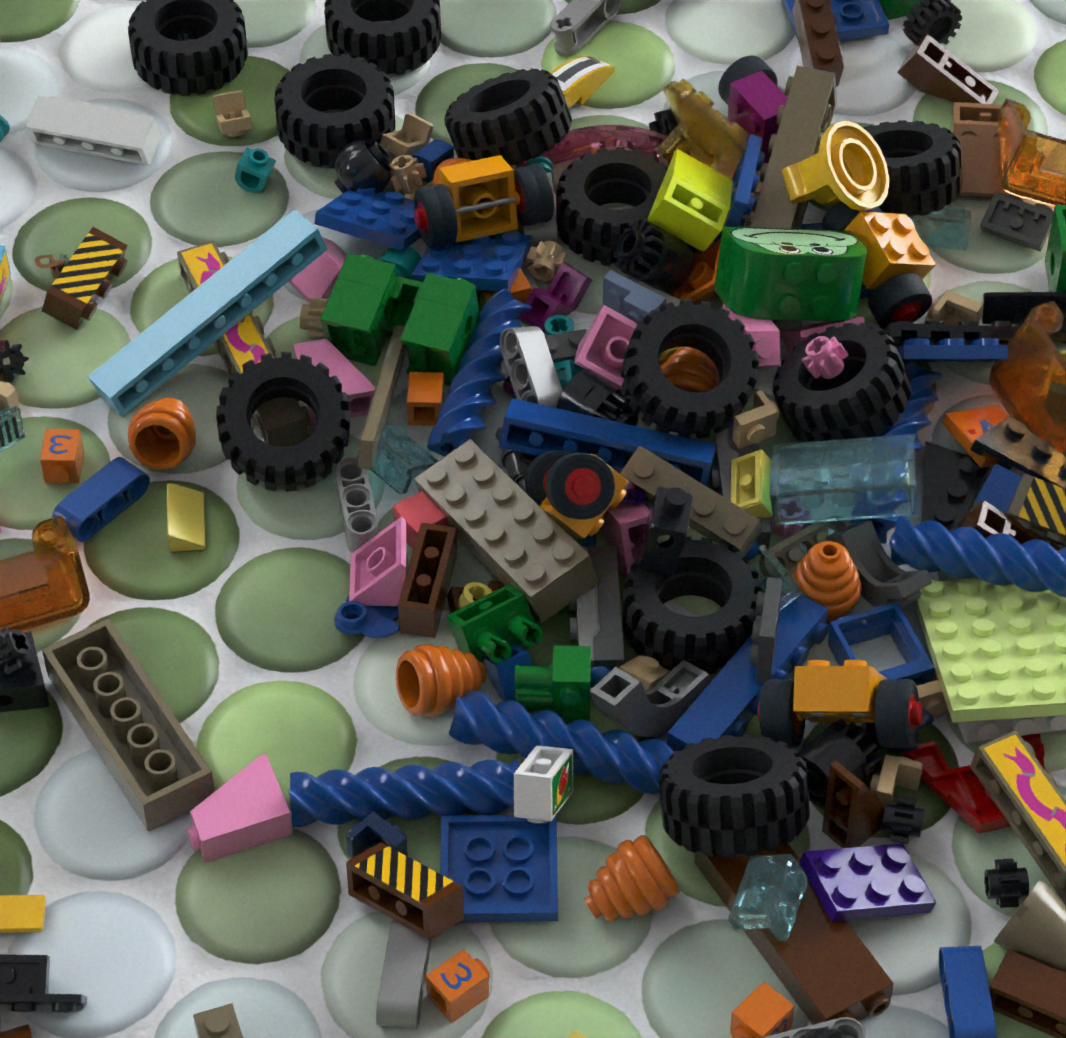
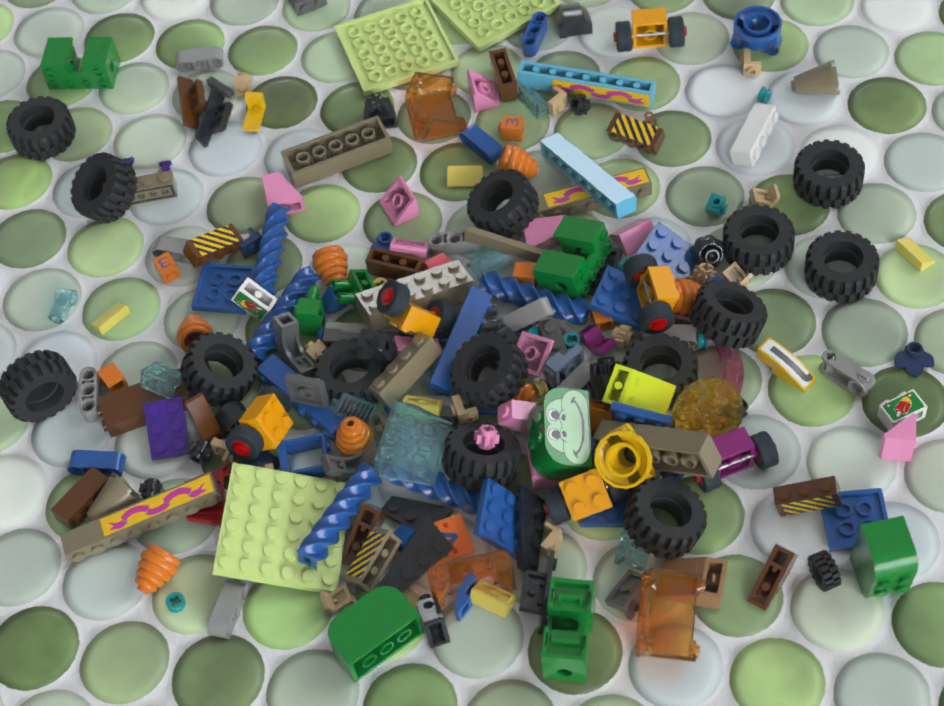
camera: 105 degrees right, 5 degrees up
(258, 602) = (400, 203): none -> bright pink slope

